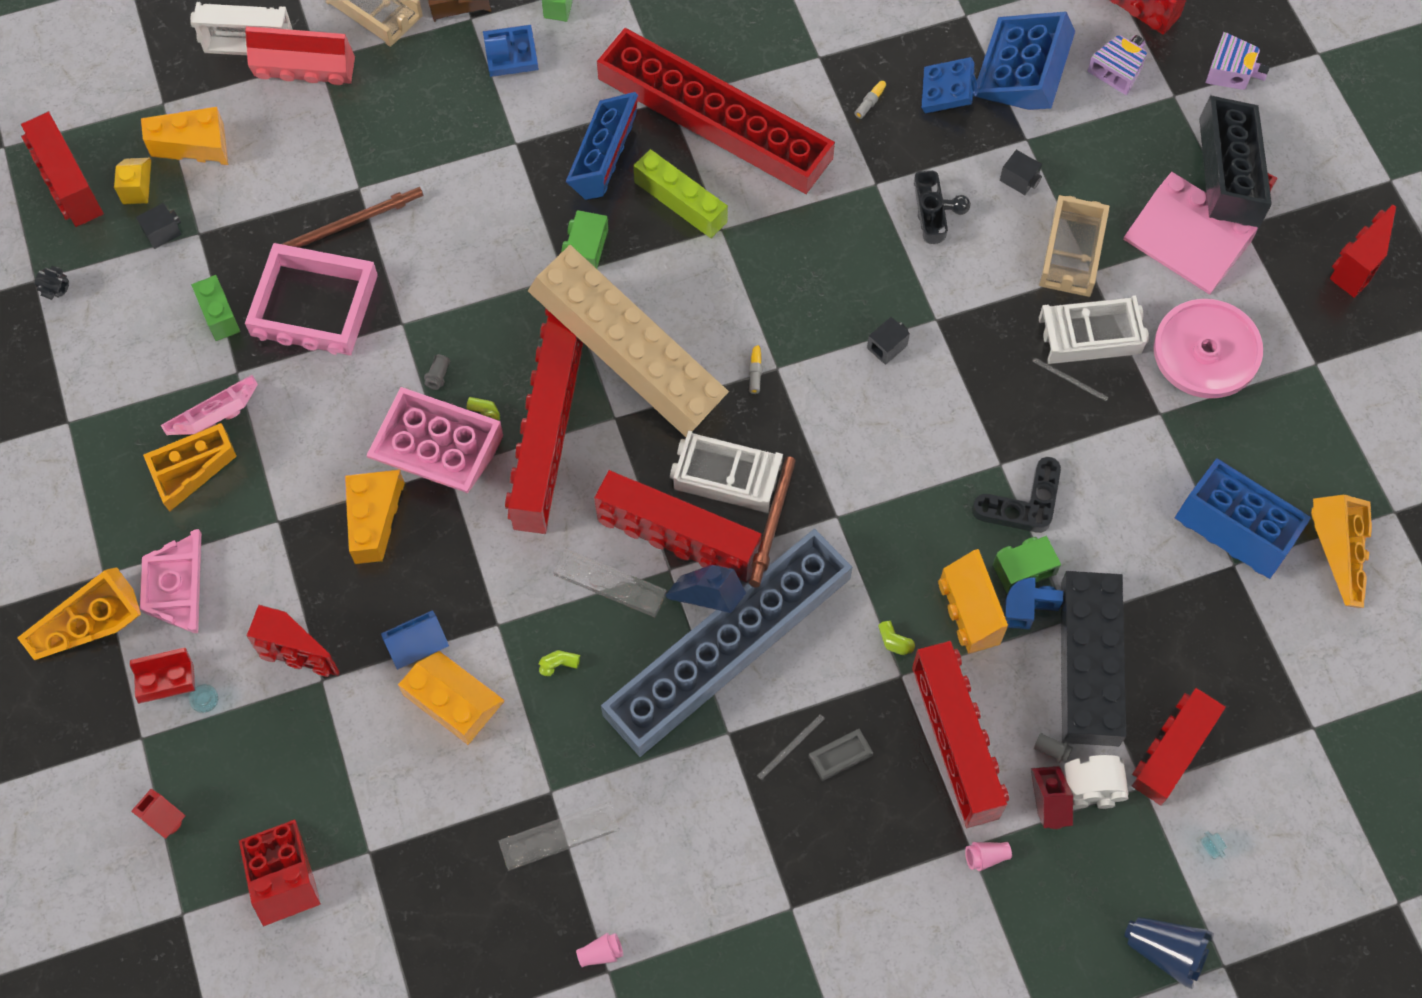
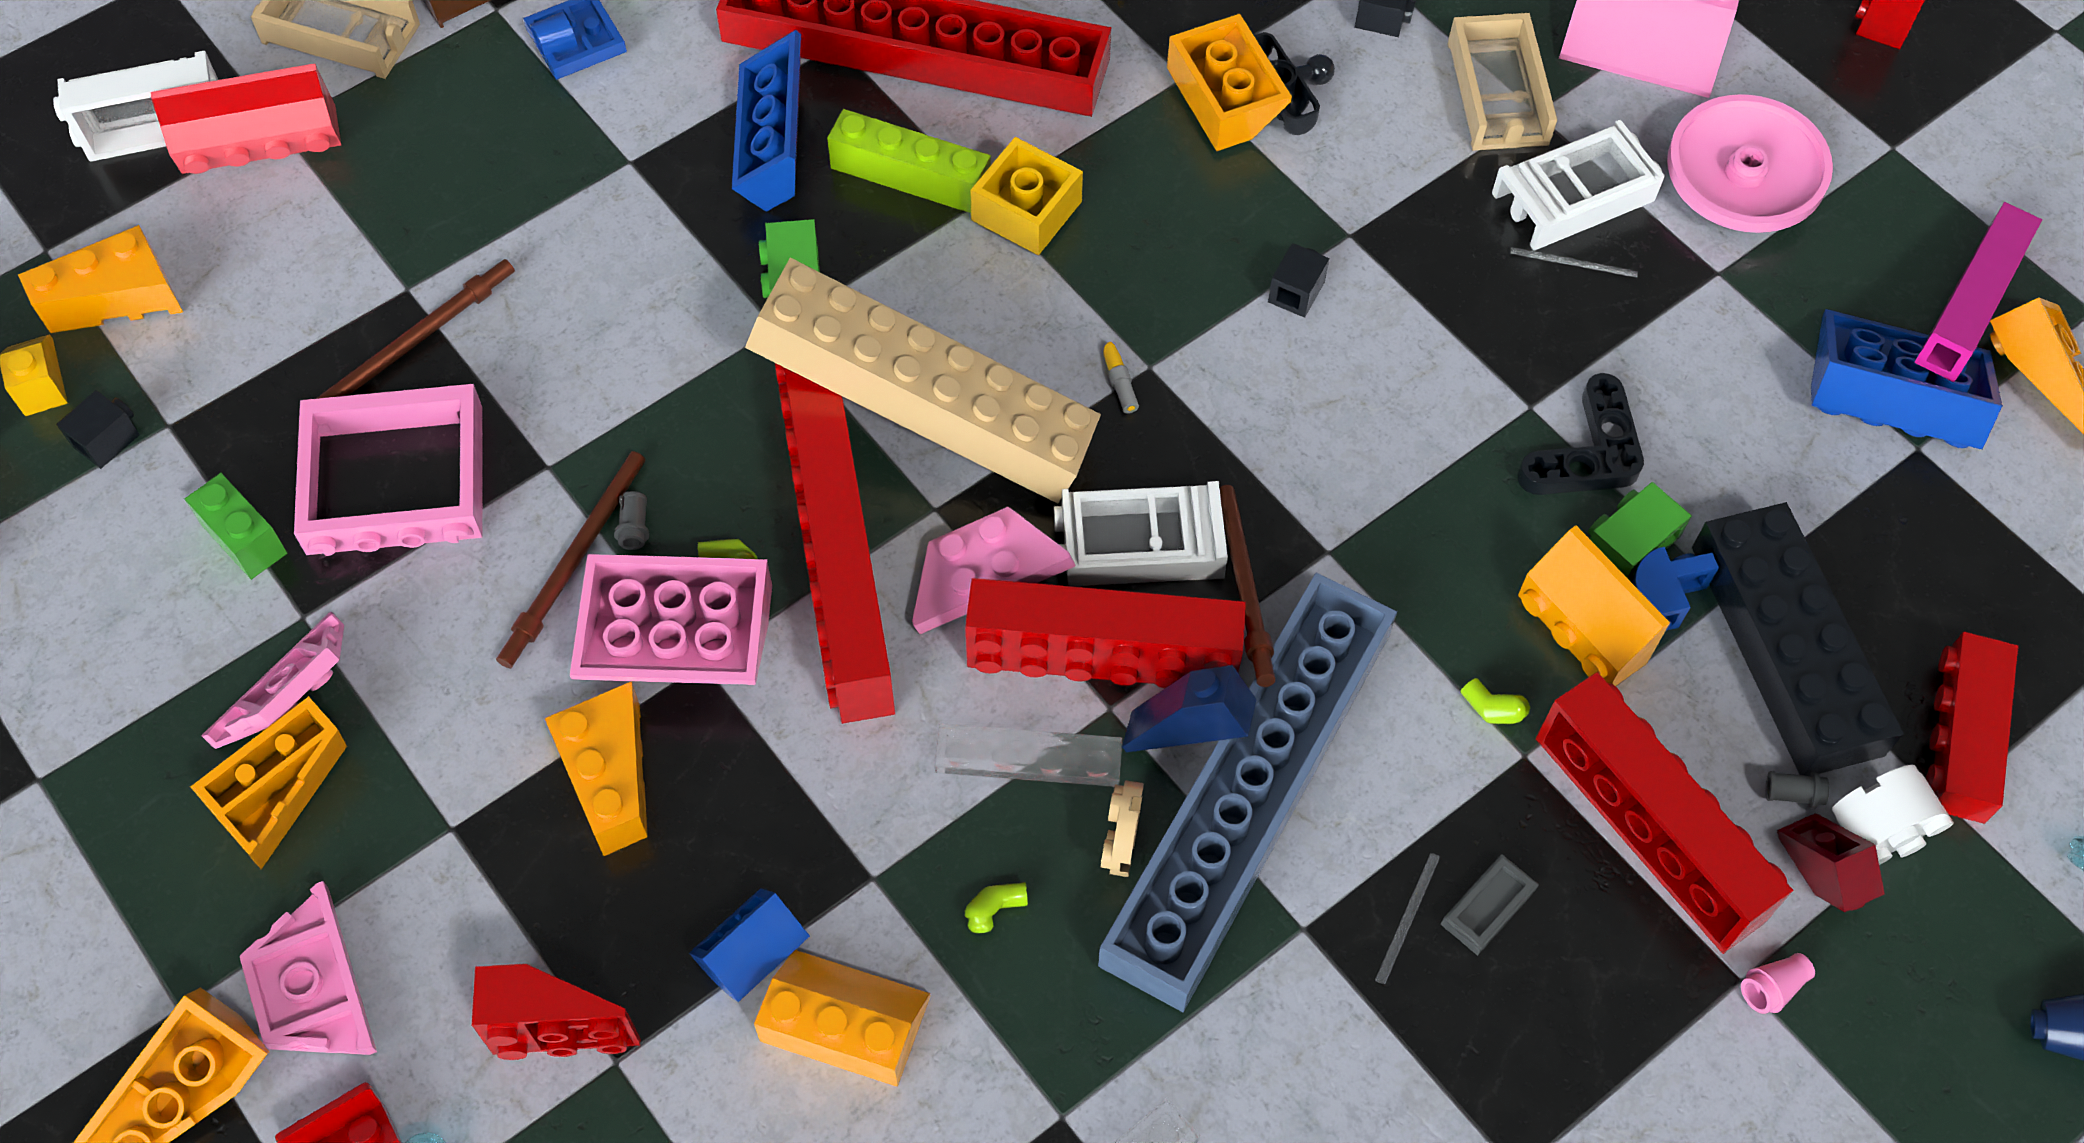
camera: 20 degrees left, 5 degrees down
(358, 417) = (529, 623): none -> copper bar
(630, 455) = (990, 548): none -> bright pink wing
(646, 640) = (1125, 811): none -> tan plate
(741, 237) = (1026, 195): none -> yellow brick
(896, 196) = (1226, 80): none -> light orange slope
(1313, 477) = (1978, 292): none -> dark pink brick

